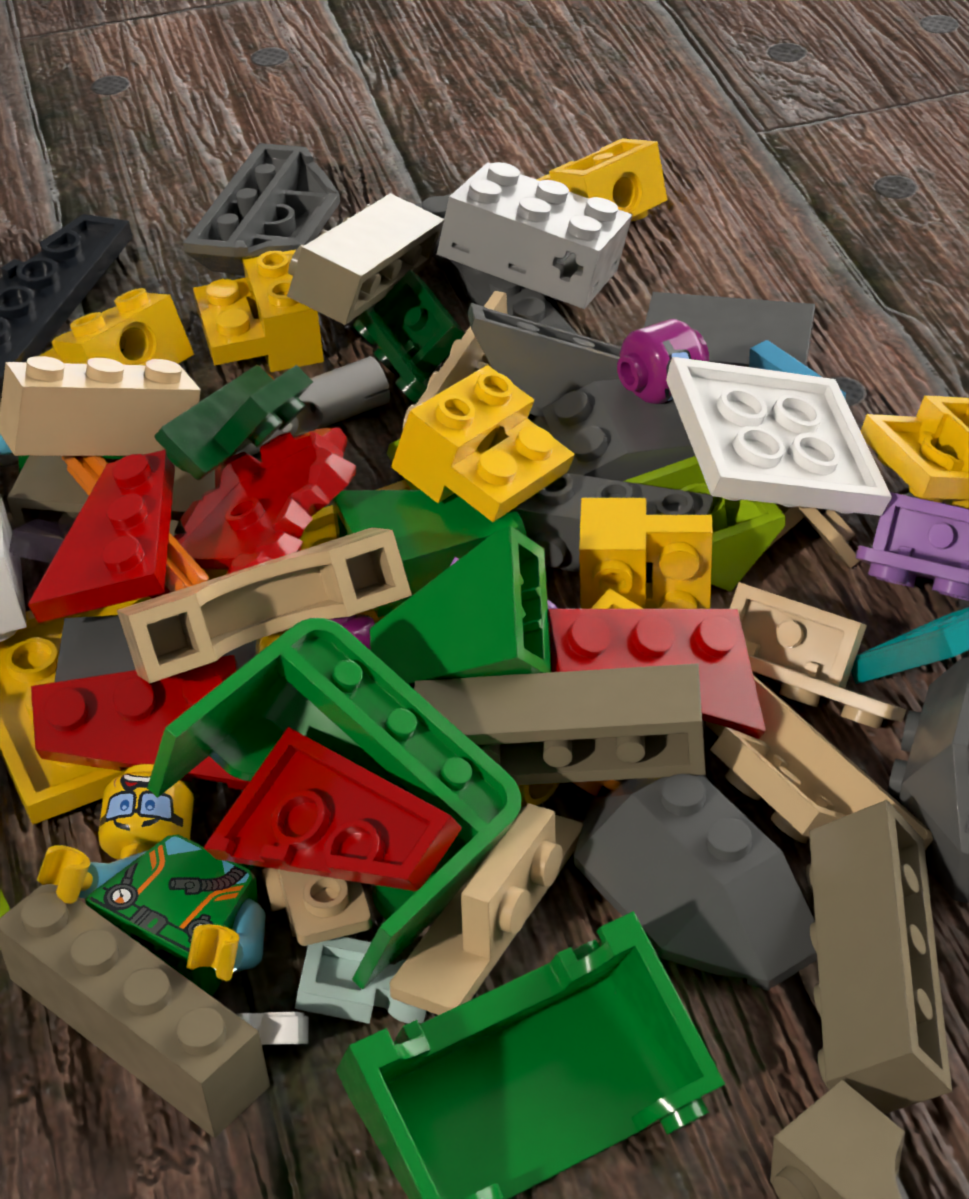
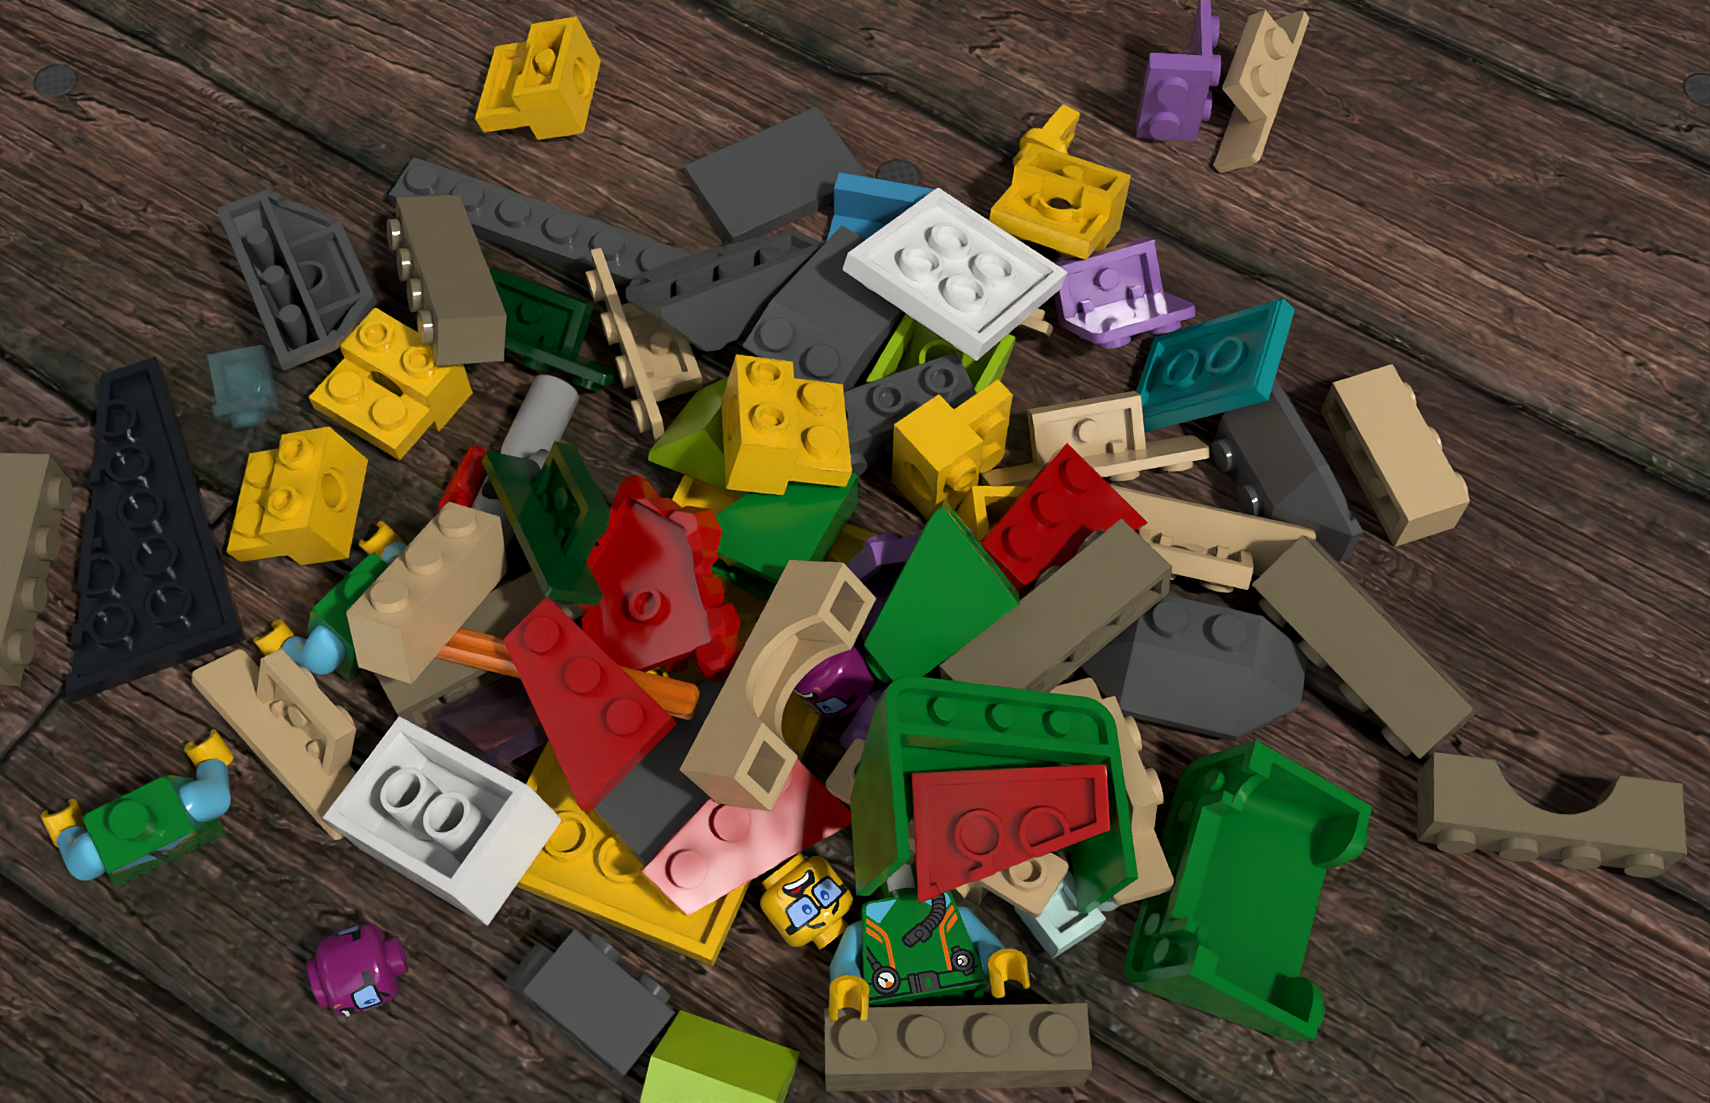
camera: 45 degrees left, 20 degrees up
(162, 267) = (243, 386): none -> clear light blue bracket
(279, 1026) = (1059, 984): white tile -> none
(534, 233) = (558, 169): light grey piece -> none
(648, 353) = (818, 253): magenta head -> none

